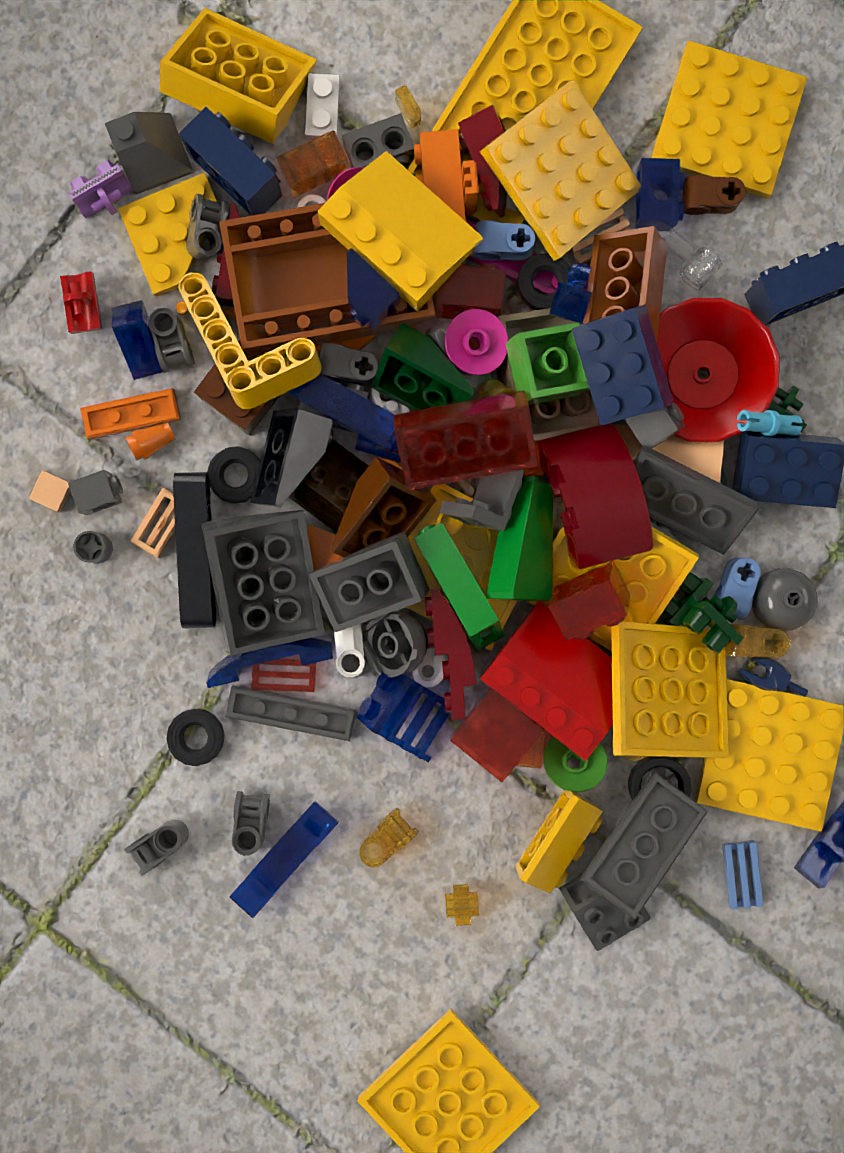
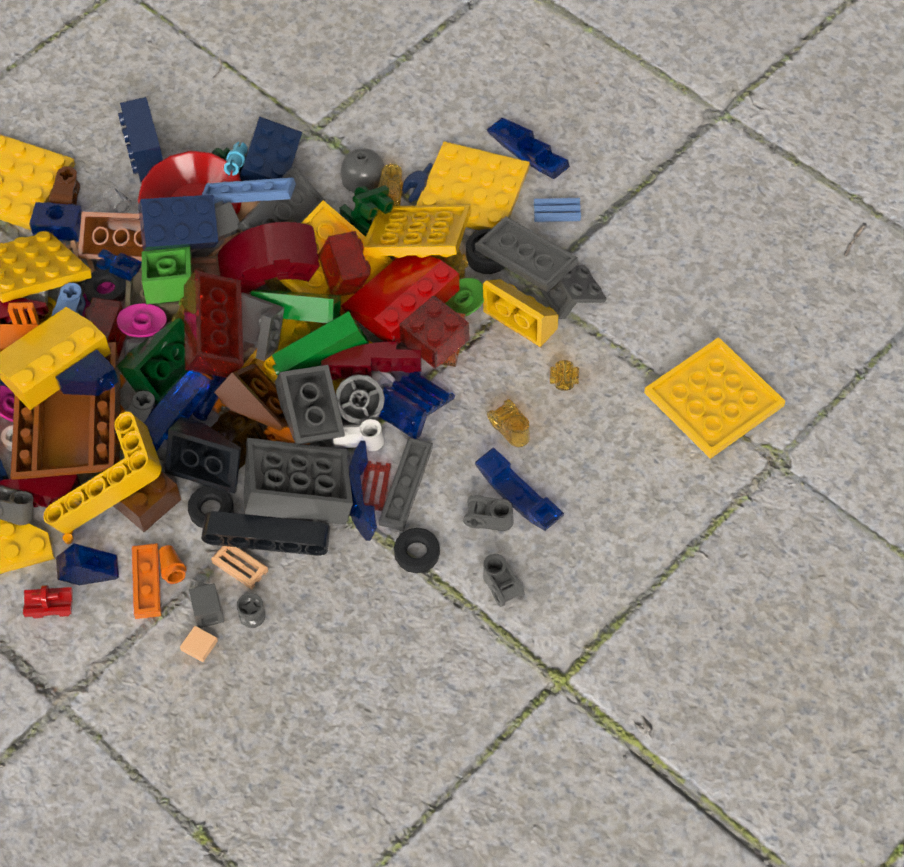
camera: 85 degrees left, 30 degrees down
(170, 346) = (94, 537): dark grey piece -> none
(703, 451) = (251, 190): none -> medium blue tile
(739, 587) = (345, 194): medium blue piece -> none

